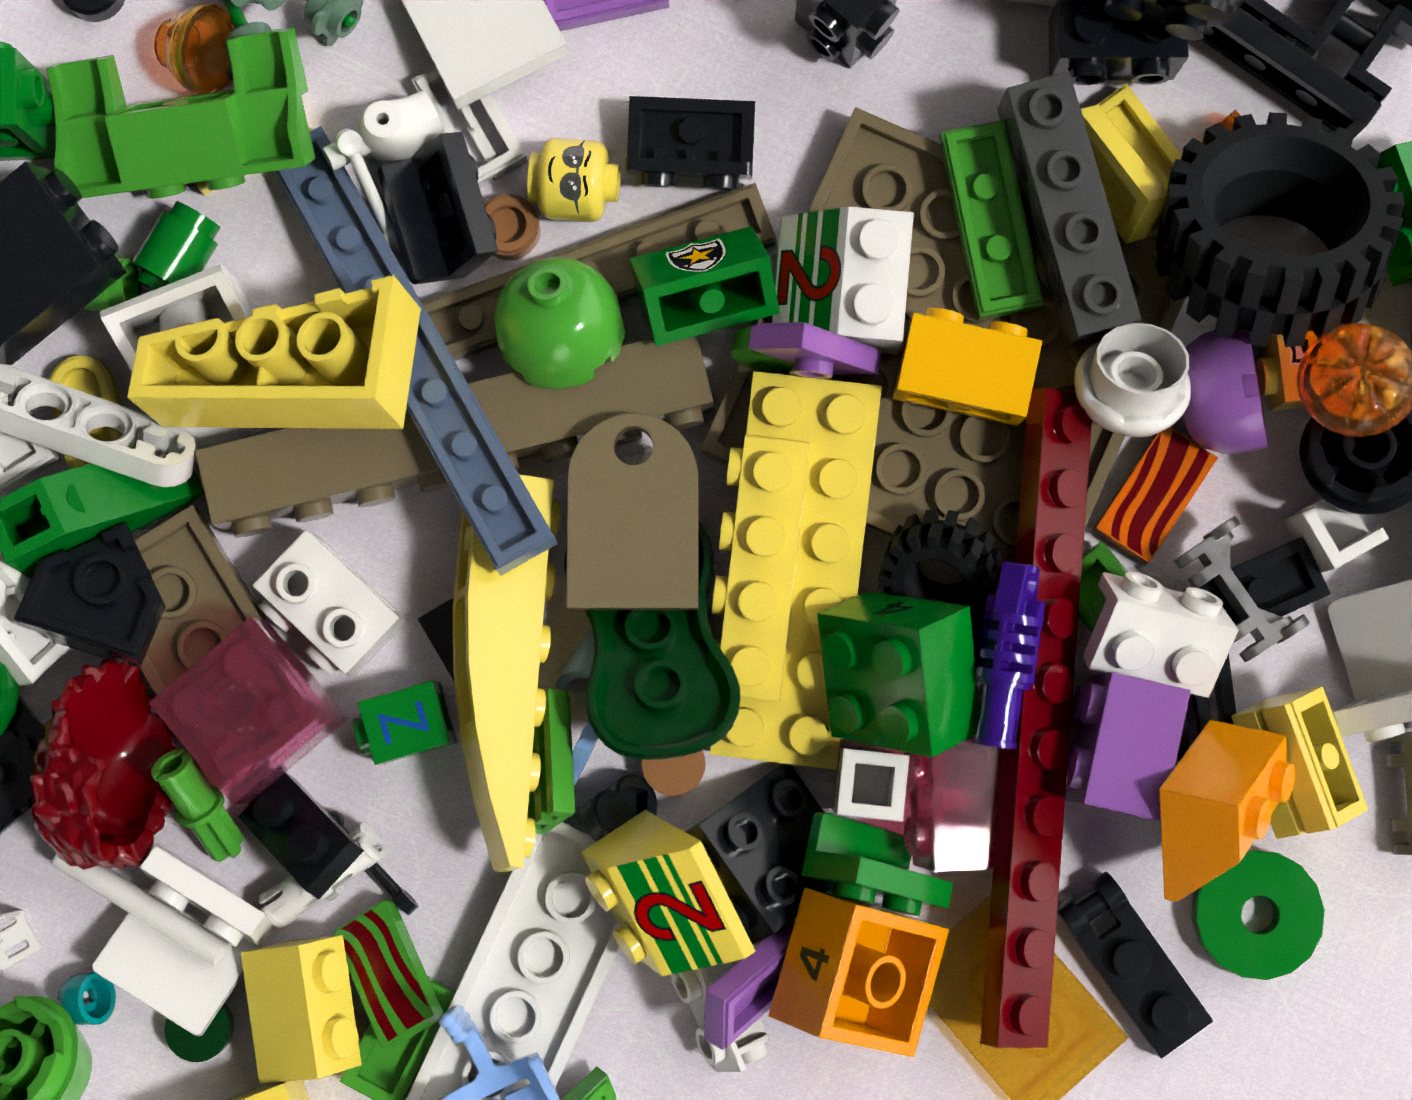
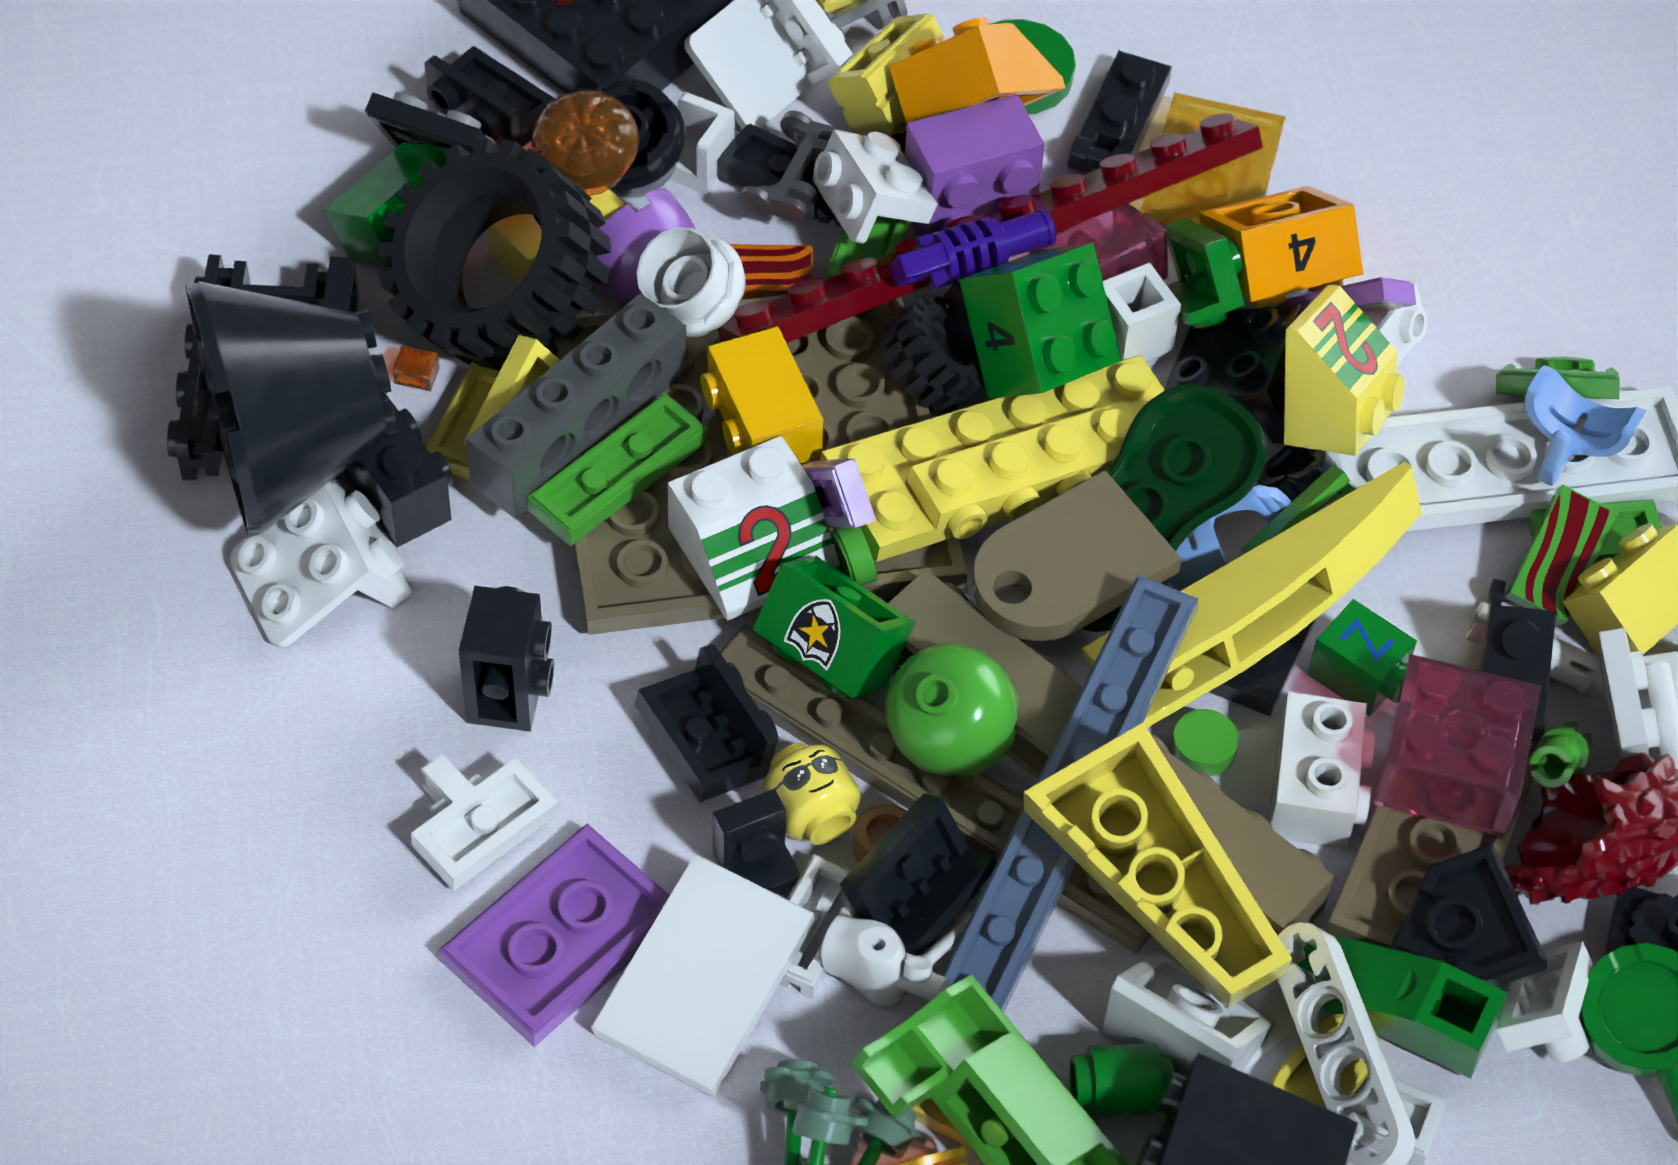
camera: 130 degrees left, 30 degrees down
(425, 540) = (1205, 741): none -> bright green tile
(549, 104) = (752, 841): none -> black bracket

